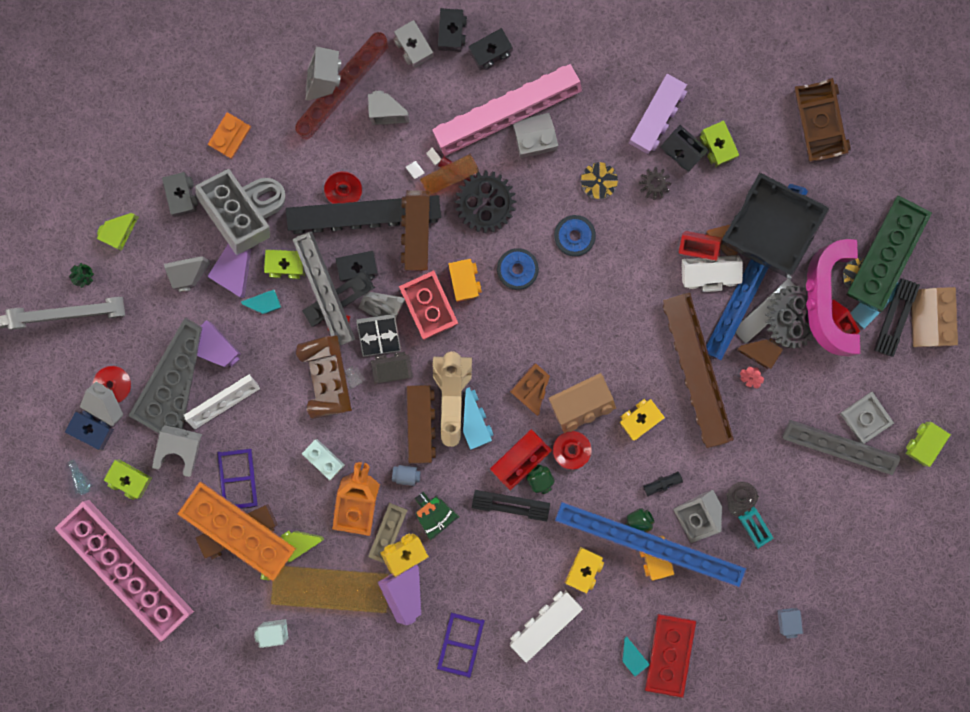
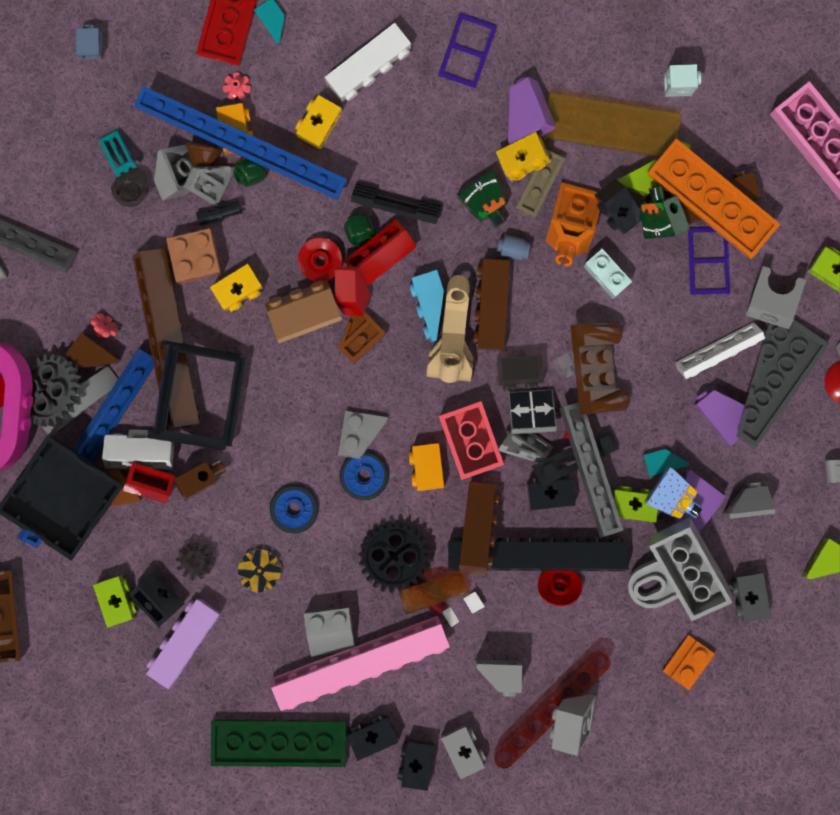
camera: 175 degrees left, 0 degrees up
(251, 272) = (673, 496): none -> light blue torso
(279, 512) = (662, 215): none -> dark green torso
(318, 518) = (618, 206): none -> black brick
(525, 304) = (358, 433): none -> light grey wing
(543, 423) = (350, 291): none -> red slope
(569, 37) = (278, 743): none -> dark green plate
(655, 592) = (238, 90): none -> coral plant
(665, 247) = (190, 485): none -> reddish brown torso
(673, 509) = (209, 182): none -> light grey wing
(680, 443) = (194, 256): none -> nougat brick
(682, 530) = (201, 154): none -> reddish brown hat
(693, 326) = (159, 431): none -> black piece

